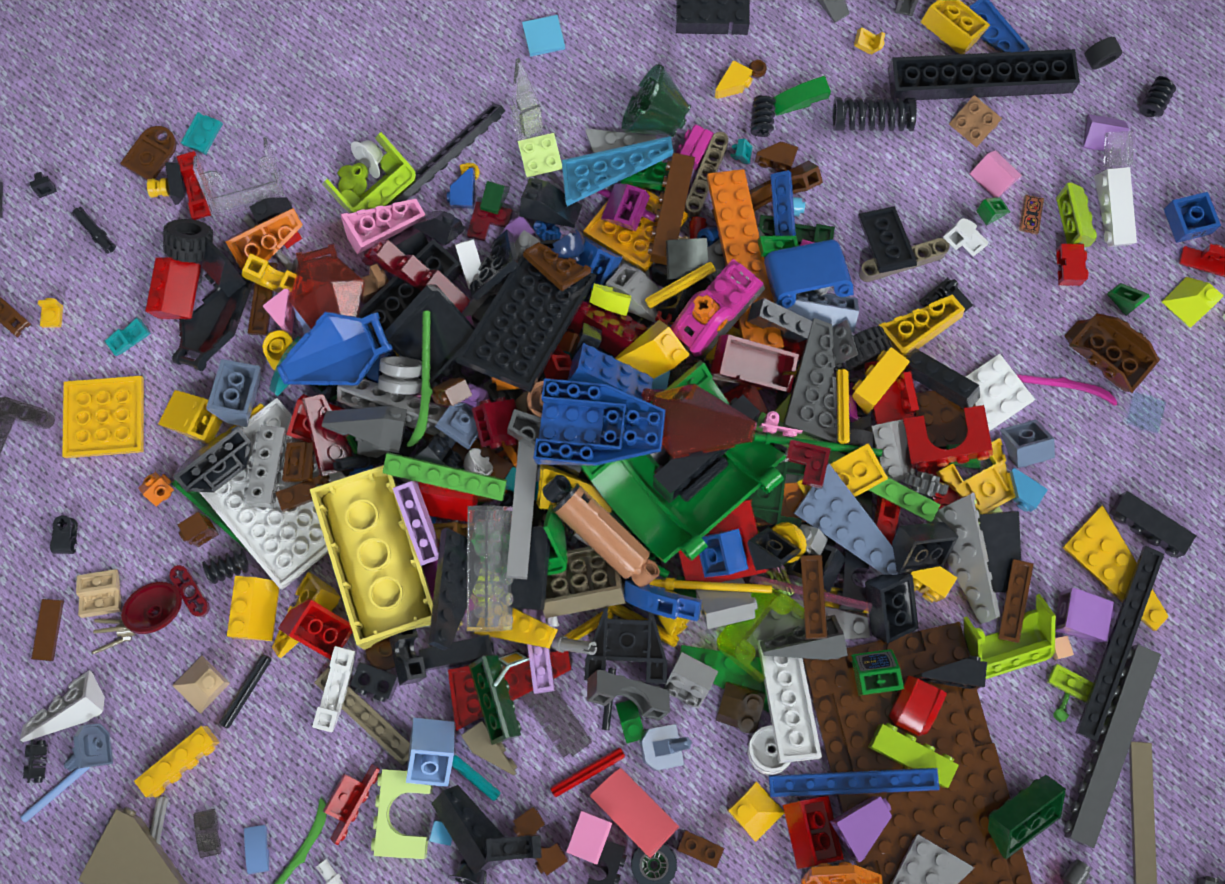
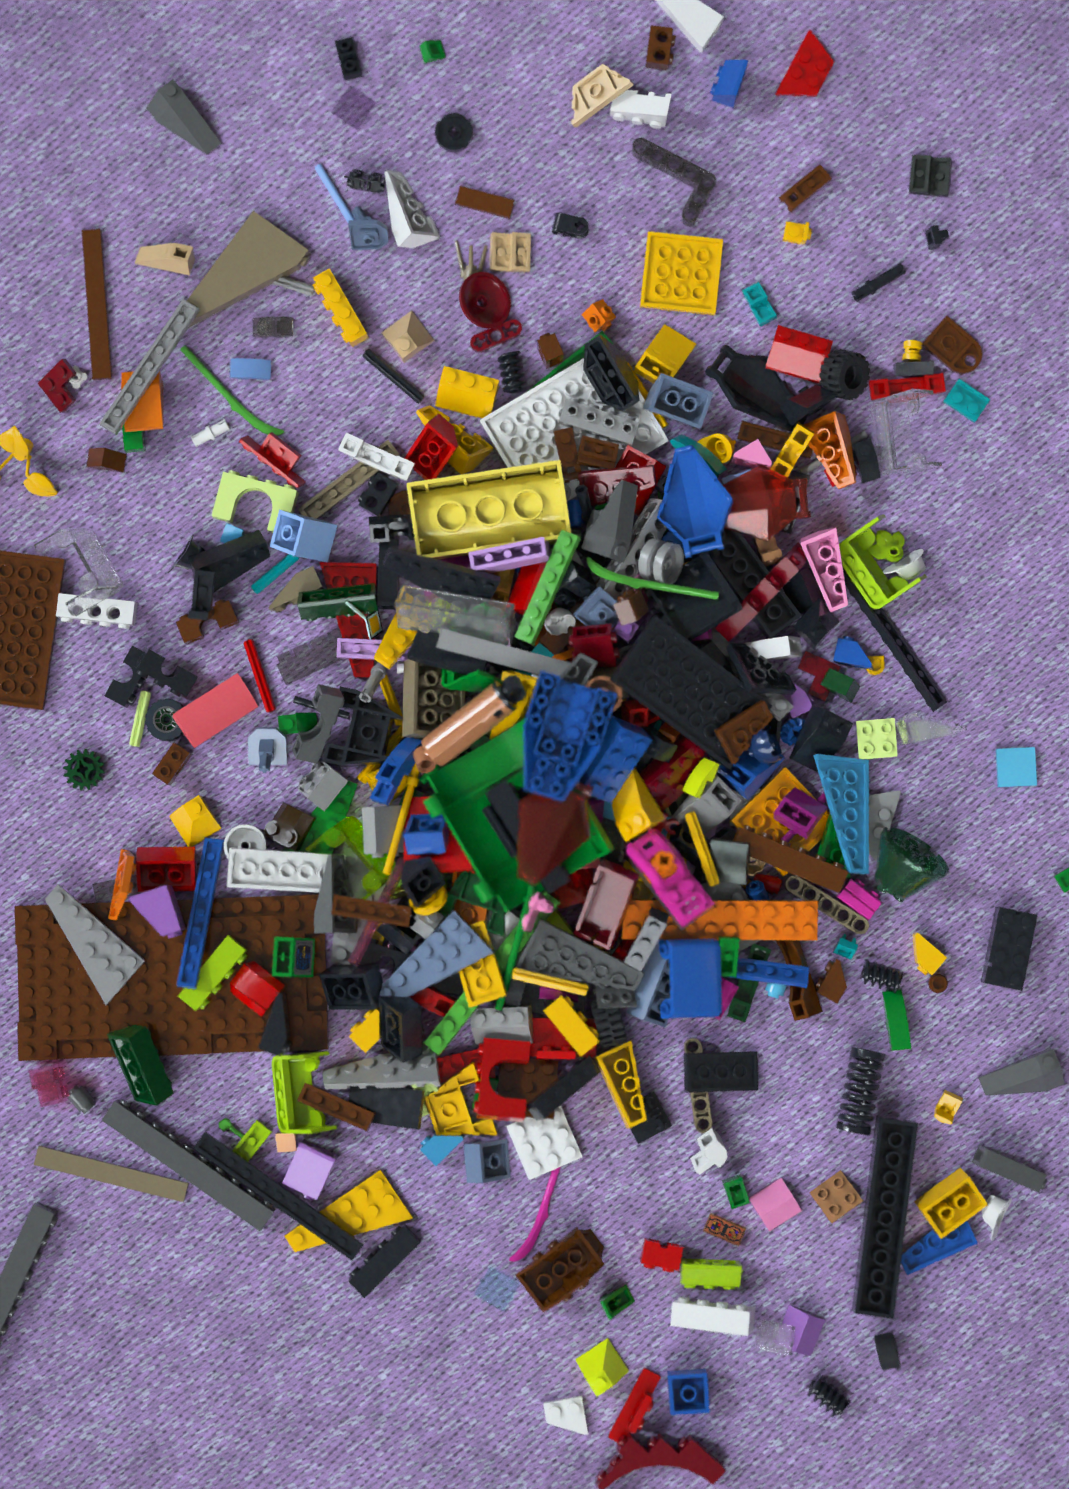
camera: 105 degrees right, 10 degrees up
(589, 837) = (200, 665): bright pink slope -> none
(813, 457) = (499, 939): dark red plate -> none
(926, 483) = (461, 1046): dark grey gear -> none

